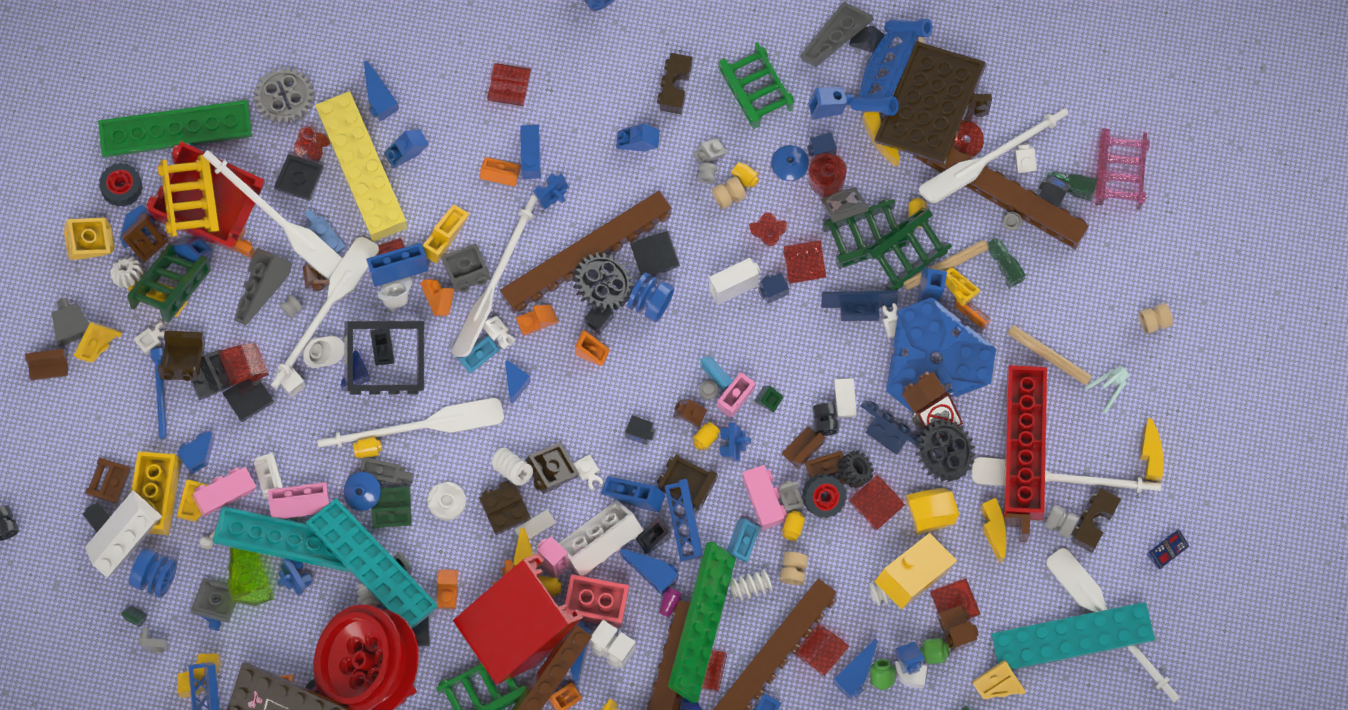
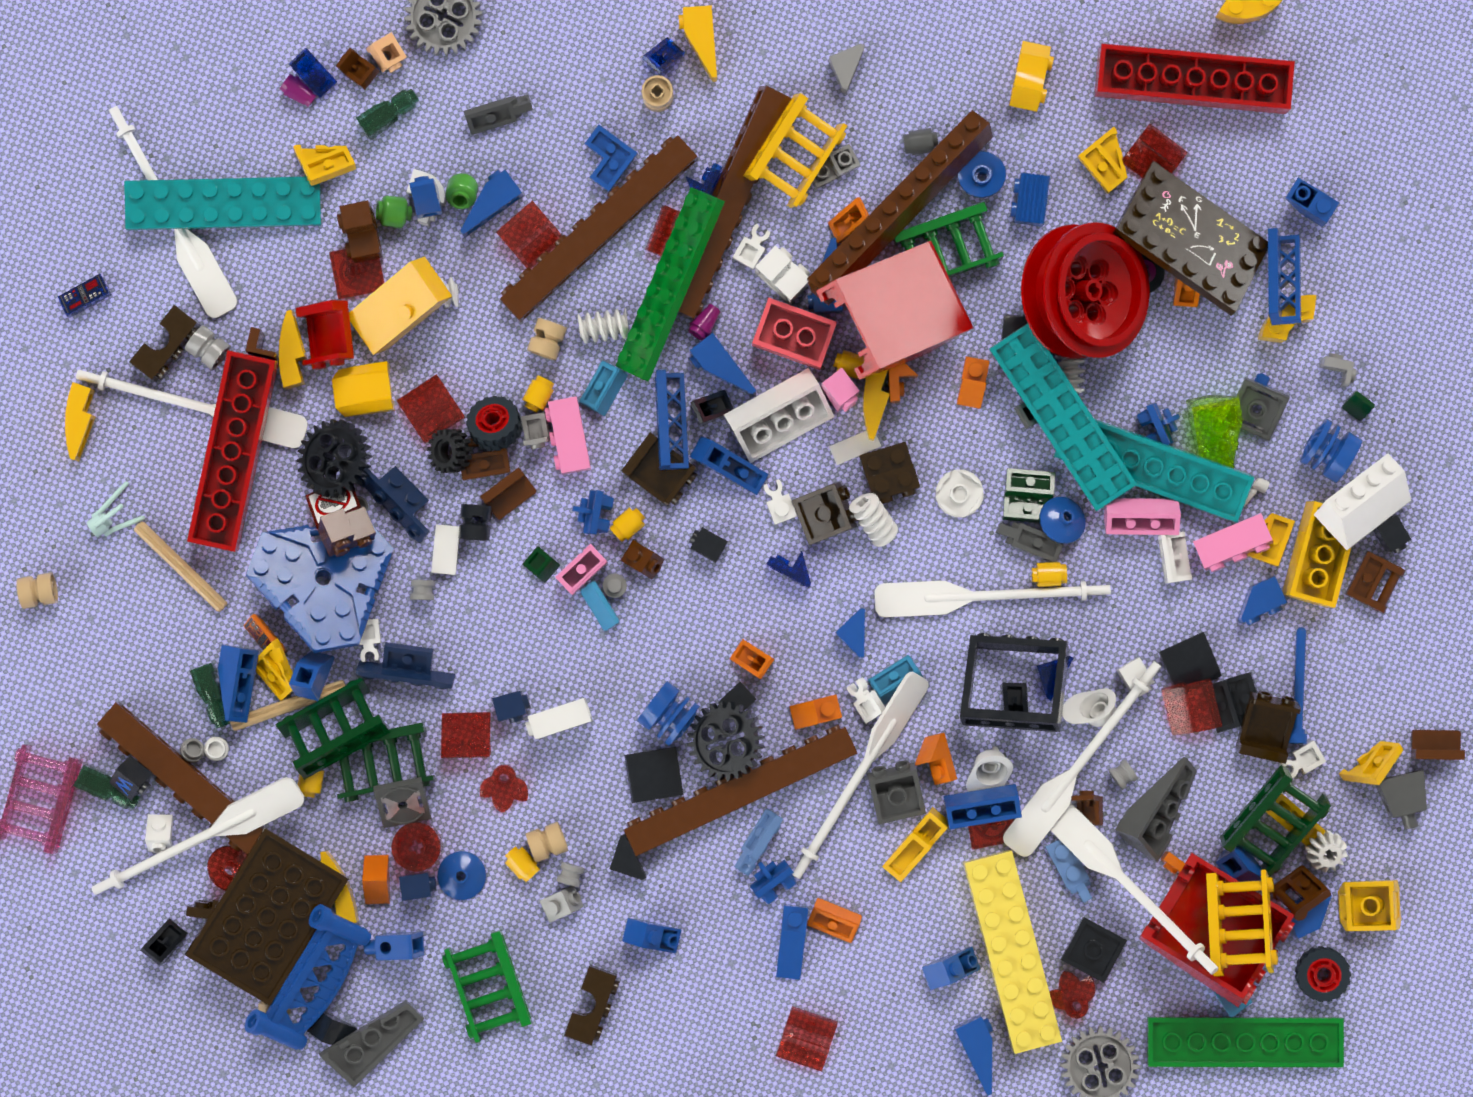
camera: 175 degrees left, 15 degrees up
(567, 218) = (758, 841): none -> medium blue hinge
(567, 419) = (796, 573): none -> clear blue slope
(641, 665) = (749, 250): none -> white plate
(666, 186) = (625, 861): none -> black slope
(854, 150) = (376, 879): none -> orange slope
(857, 363) = (422, 590): none -> light grey wheel
(968, 544) = (327, 333): none -> red panel
(988, 274) = (236, 679): none -> blue slope
(994, 225) = (216, 748): none -> white plate
(1005, 80) = (164, 942): none -> black slope

